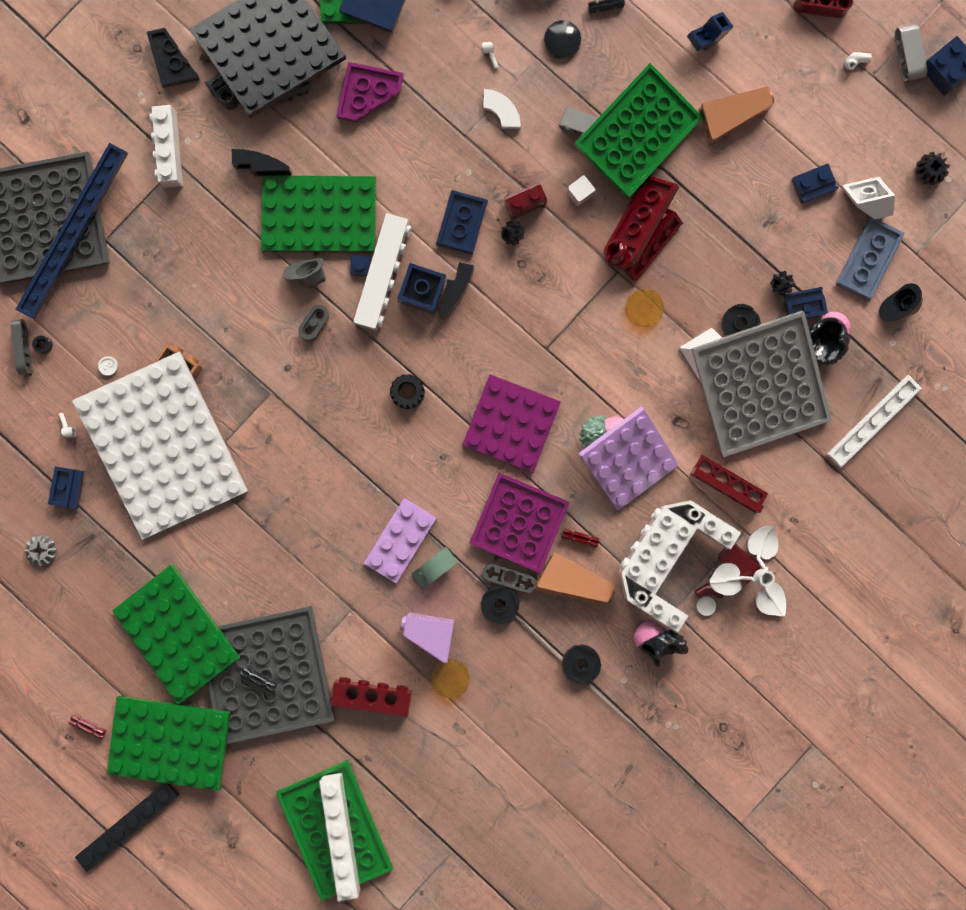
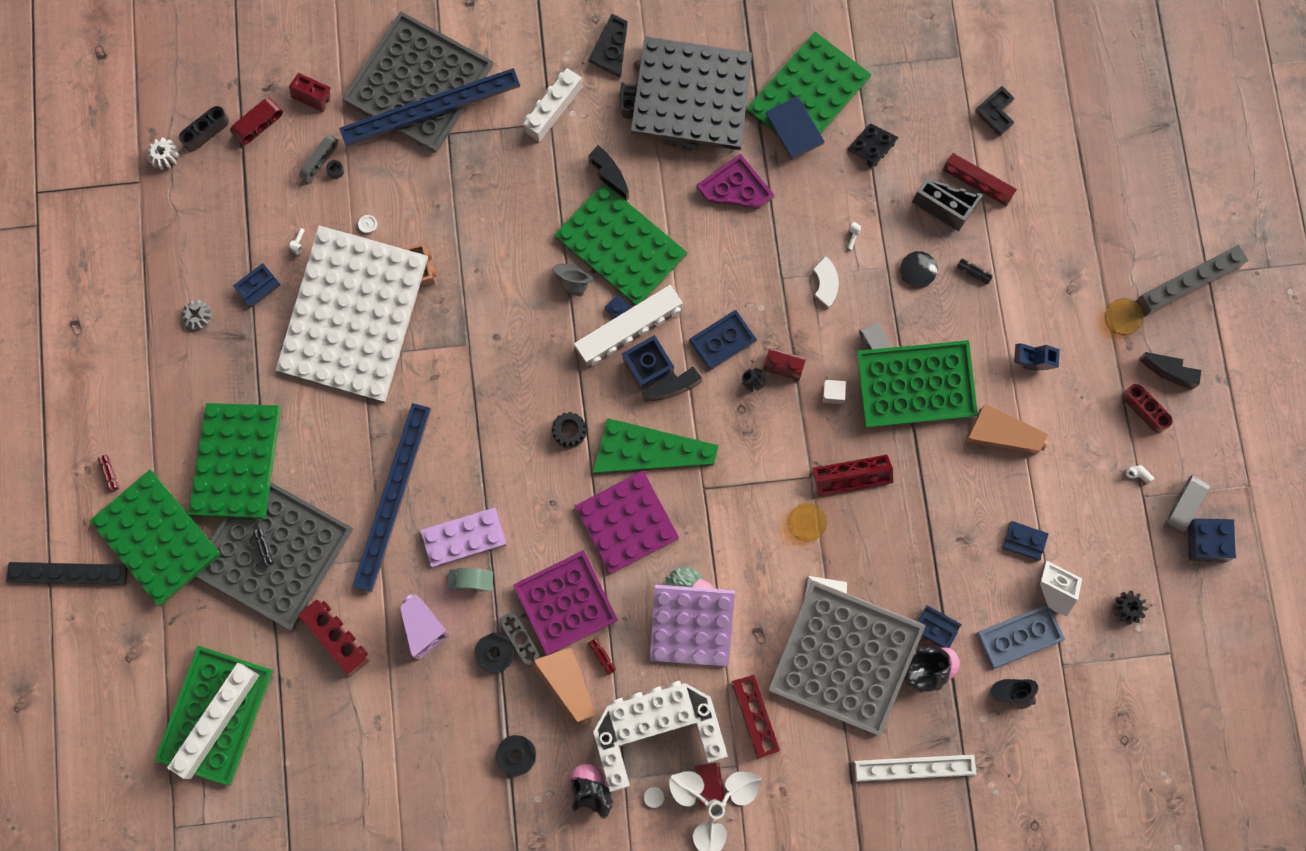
camera: 40 degrees right, 10 degrees down
(311, 321) = (544, 318): dark grey plate -> none
(319, 557) = (392, 498): none -> dark blue plate
(450, 678) = (406, 676): clear yellow tile -> none
(472, 359) = (642, 448): none -> green wing
(639, 222) = (857, 452): dark red plate -> none
(707, 589) = (664, 783): dark red arm -> none
(733, 314) = (877, 587): black plate -> none
(782, 283) = (932, 594): black gear -> none

